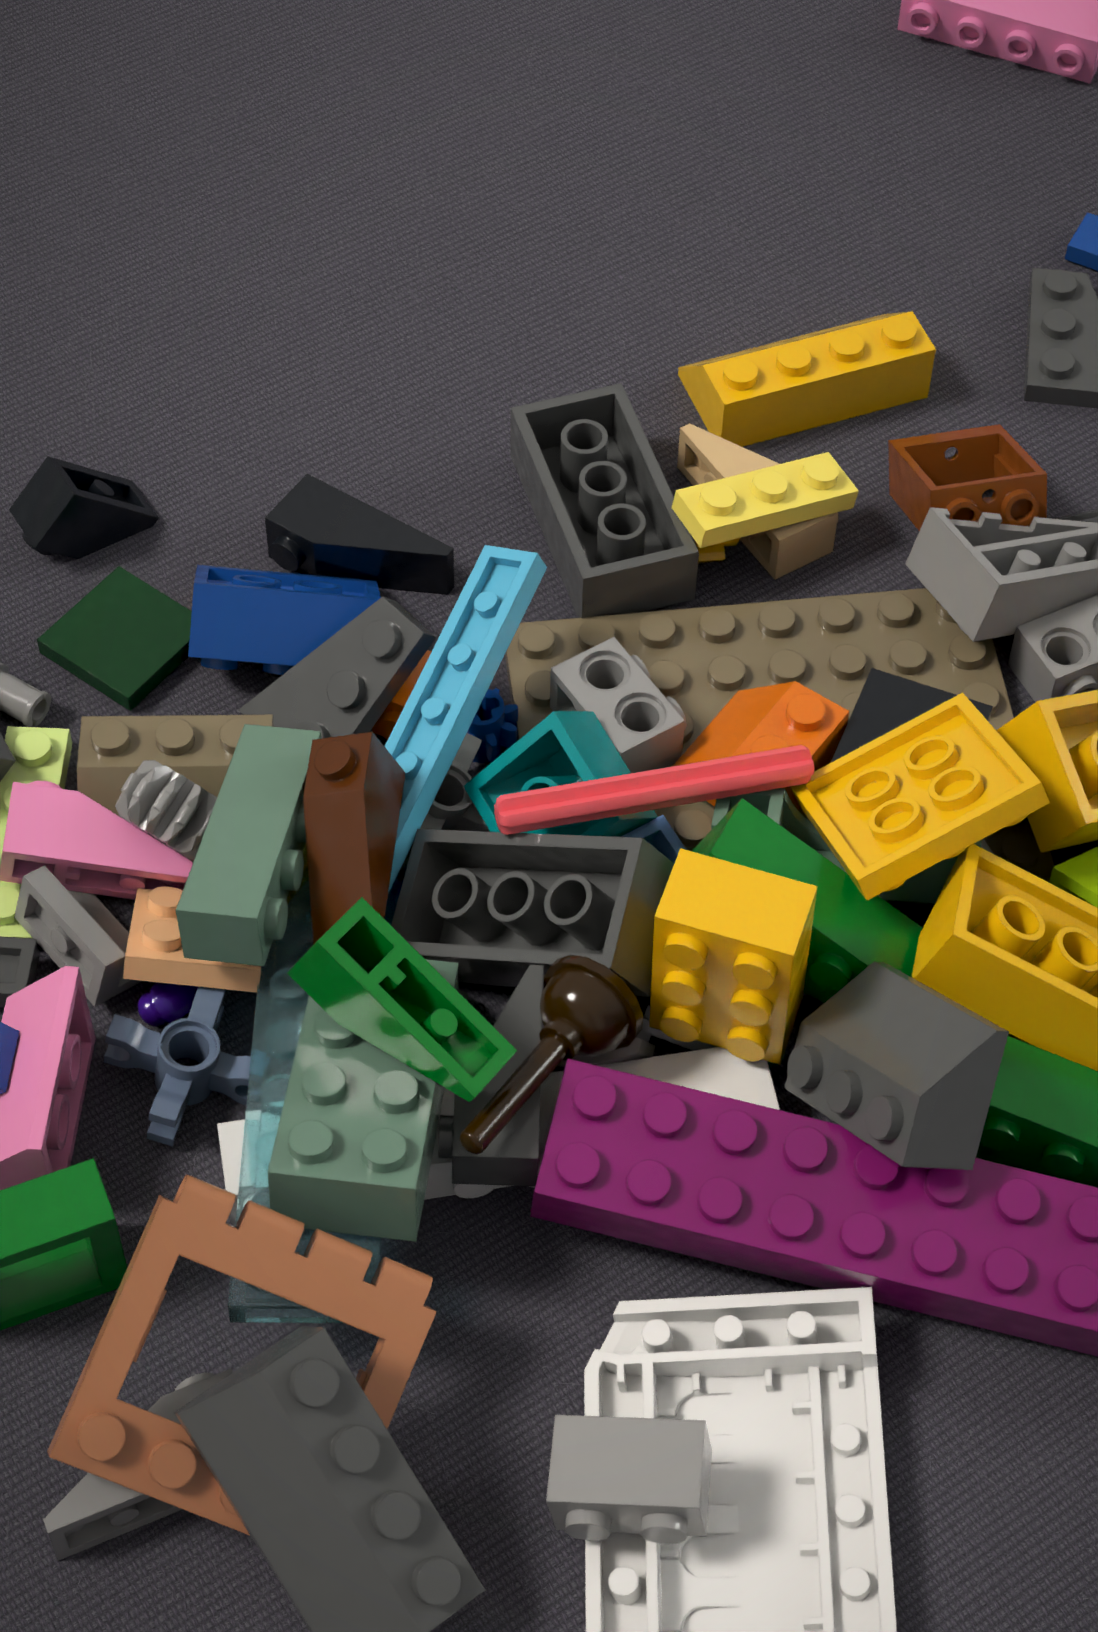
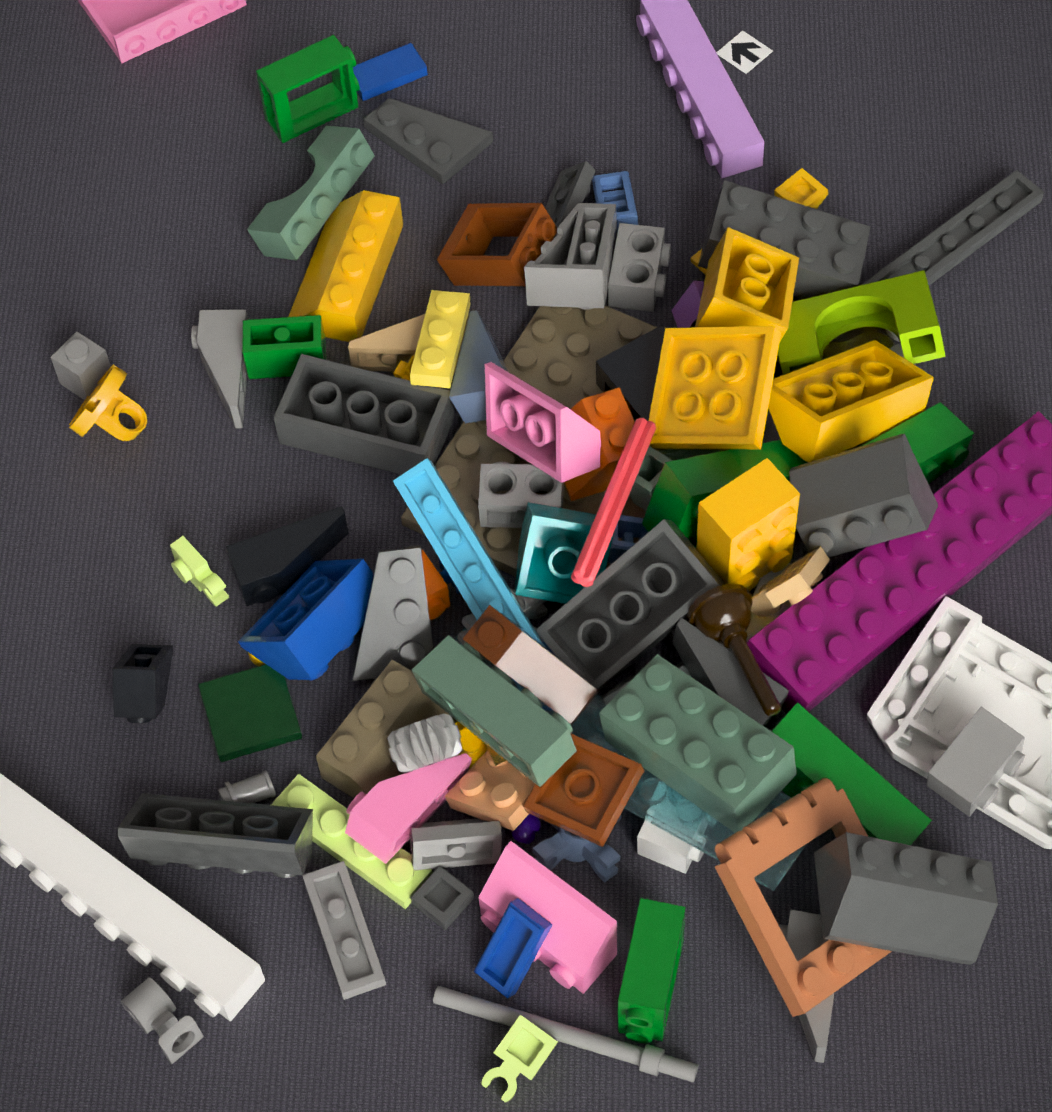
camera: 50 degrees left, 5 degrees up
(221, 1015) = (586, 792): none -> dark orange plate
(269, 470) = (193, 567): none -> yellowish green plate
(400, 1003) = (679, 688): green slope -> none
(406, 261) = (104, 407): none -> yellow tile
(448, 220) = (80, 364): none -> light grey brick
(473, 1337) = (821, 755): none -> green wedge
(576, 335) = (221, 352): none -> light grey slope
(623, 351) = (276, 344): none -> green brick
(699, 1066) = (791, 585): none -> tan hinge
(715, 660) = (538, 427): none -> bright pink slope
(764, 573) = (469, 378): none -> sand blue slope
(826, 283) = (290, 224): none -> sand green arch
(1002, 218) = (318, 106): none -> green window

